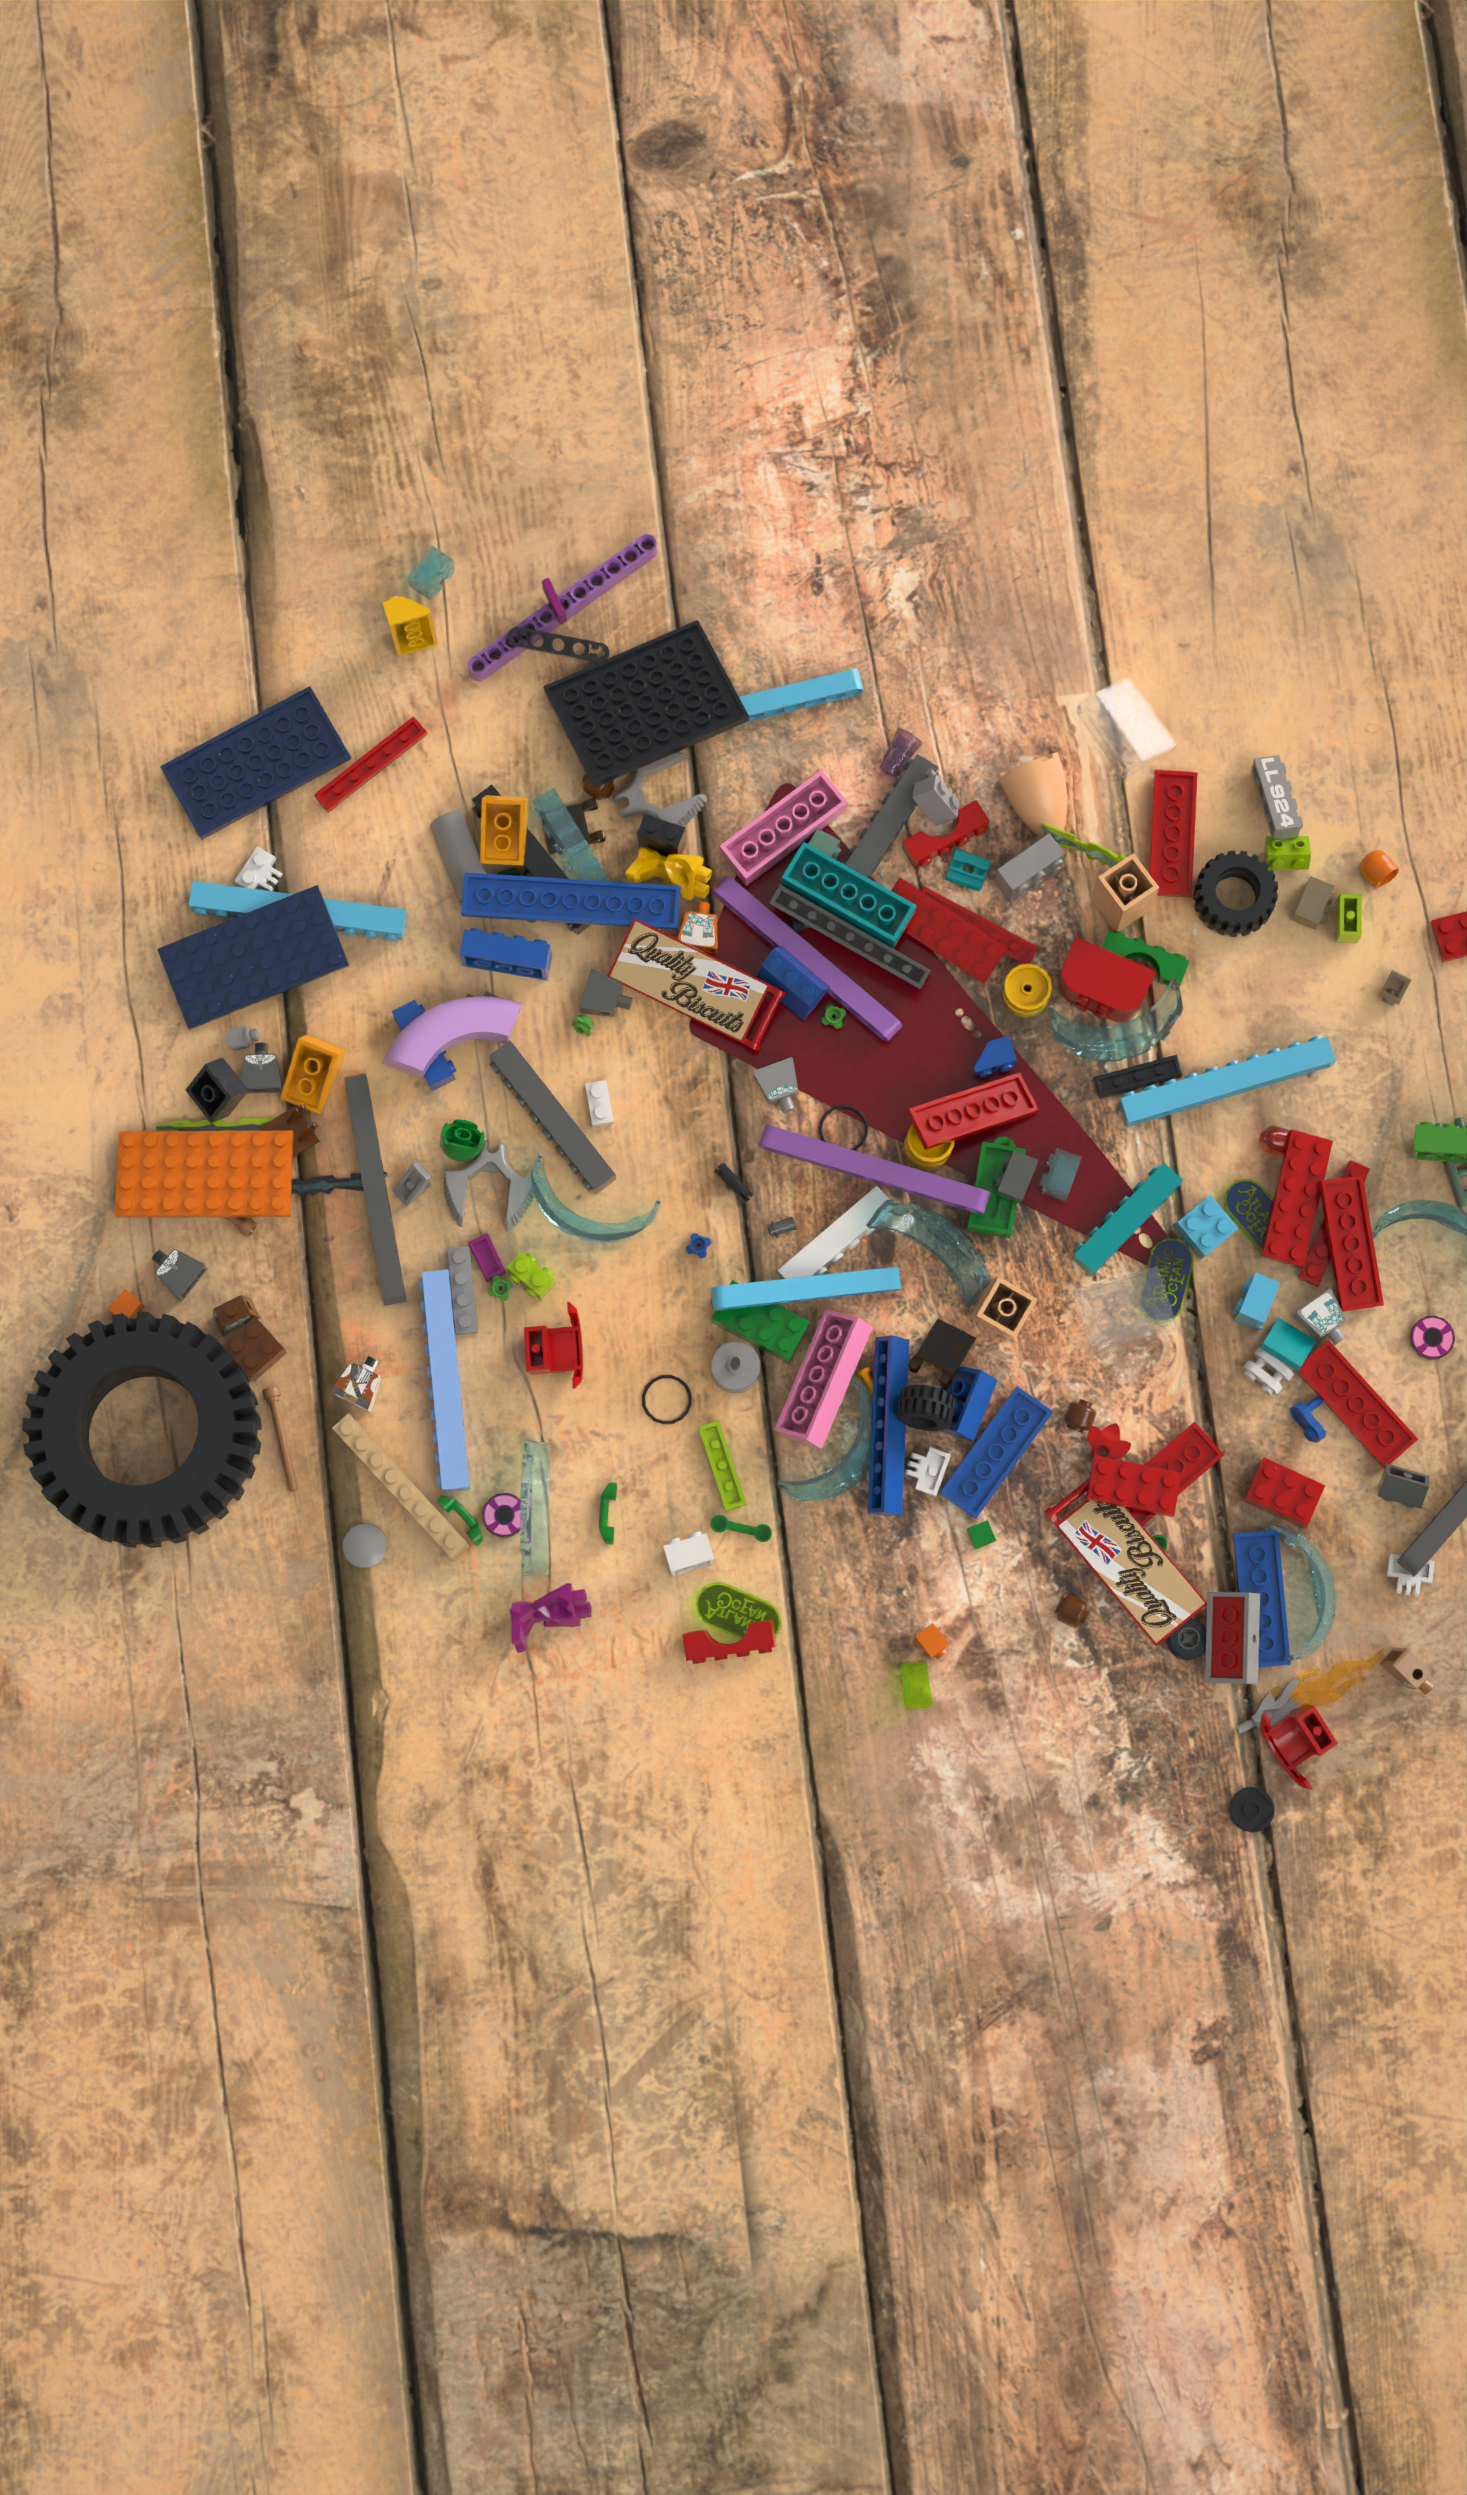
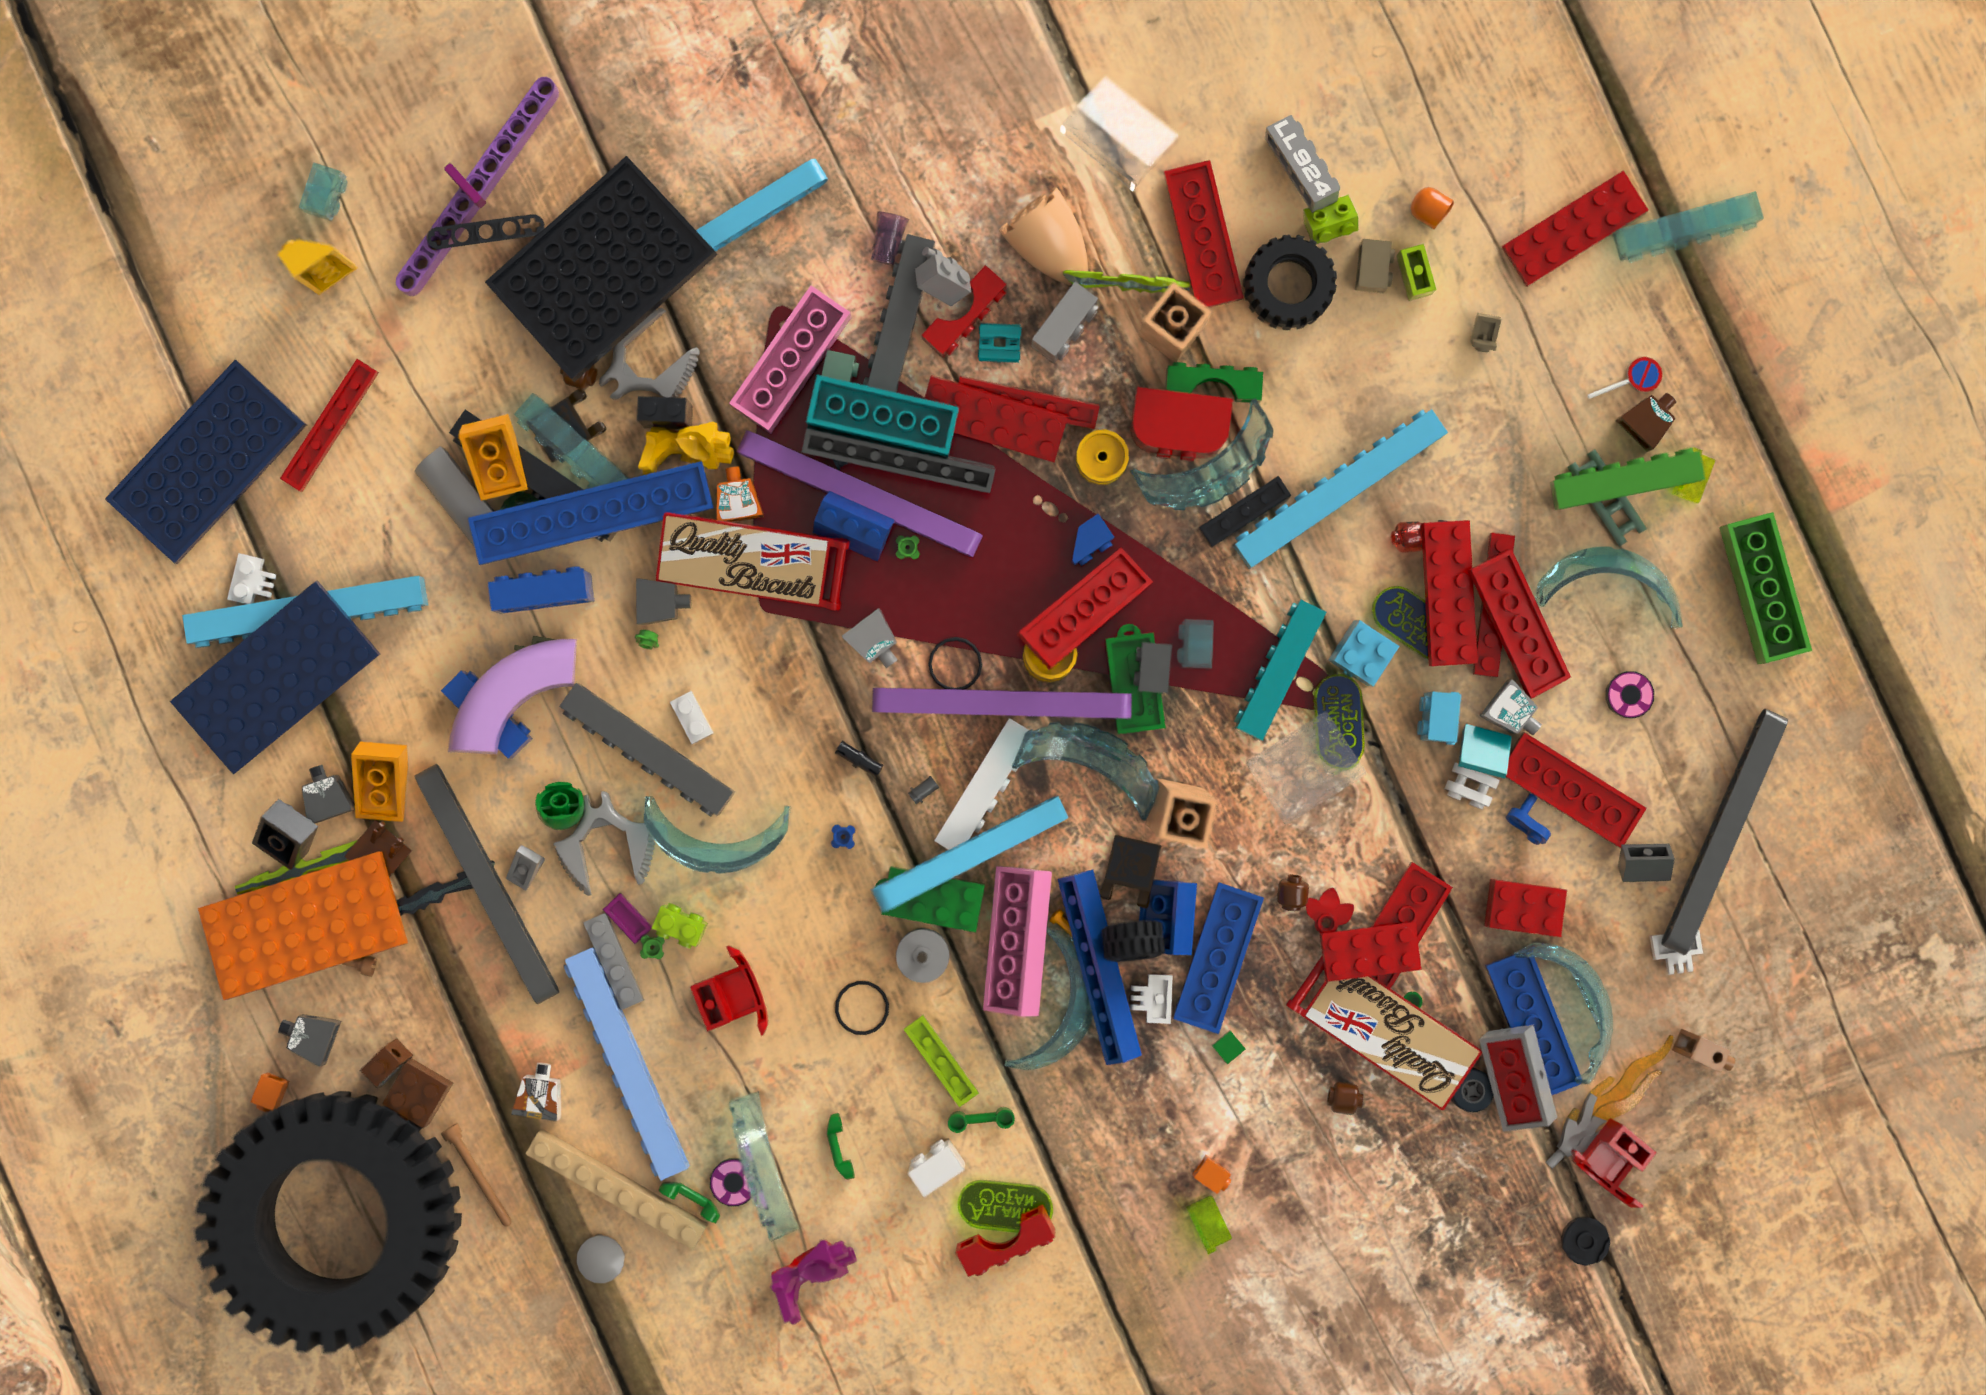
camera: 20 degrees left, 10 degrees up
(241, 1037) = (292, 766): light grey arm -> none

